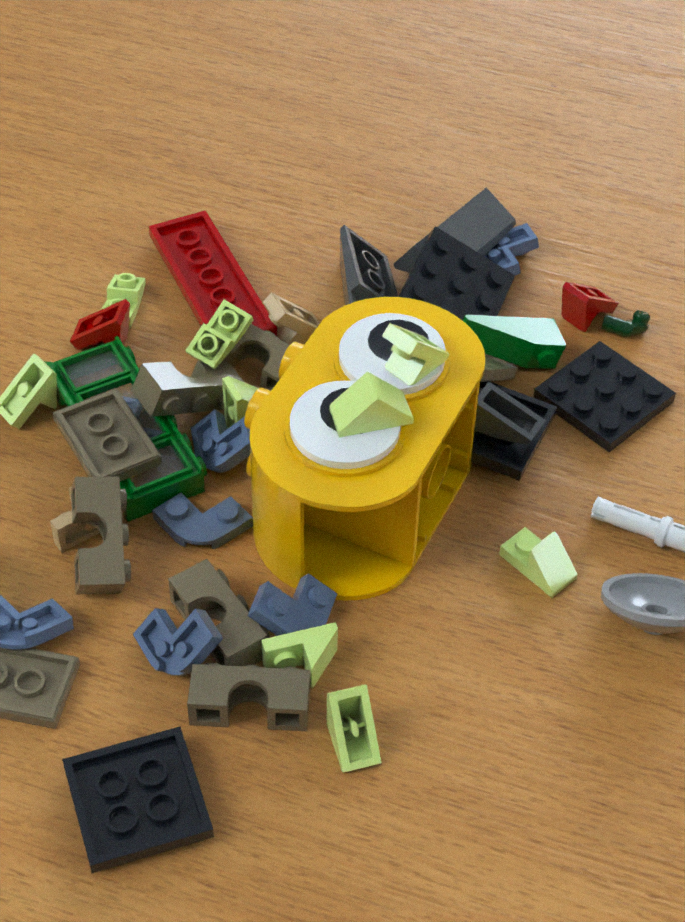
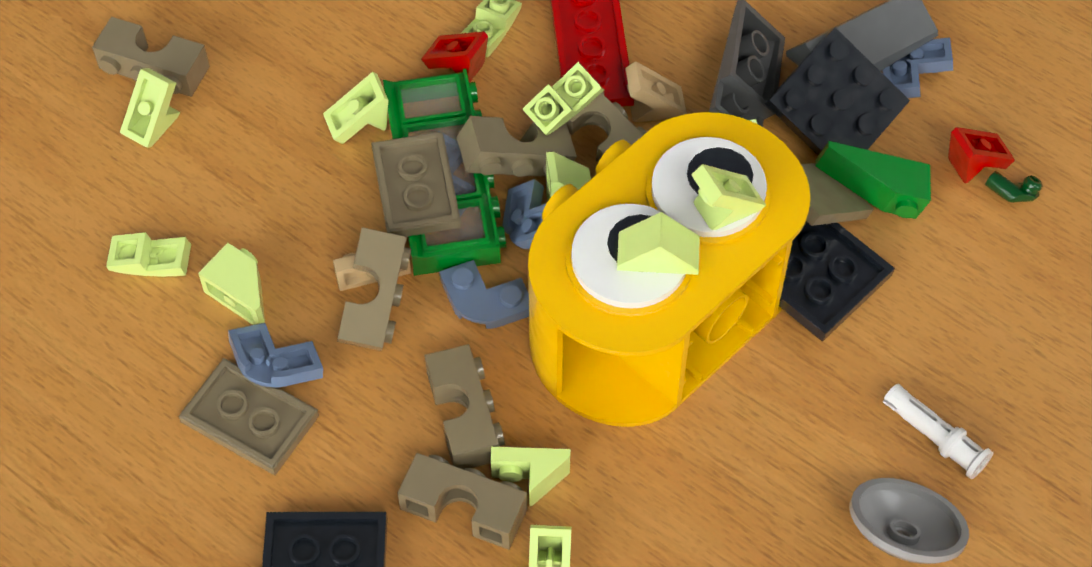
camera: 20 degrees right, 10 degrees up
(173, 648) = (412, 429): sand blue plate -> none
(284, 614) = (531, 428): sand blue plate -> none
(505, 417) = (824, 266): dark grey slope -> none
(540, 560) = (809, 437): yellowish green slope -> none
(605, 395) = (955, 266): black plate -> none

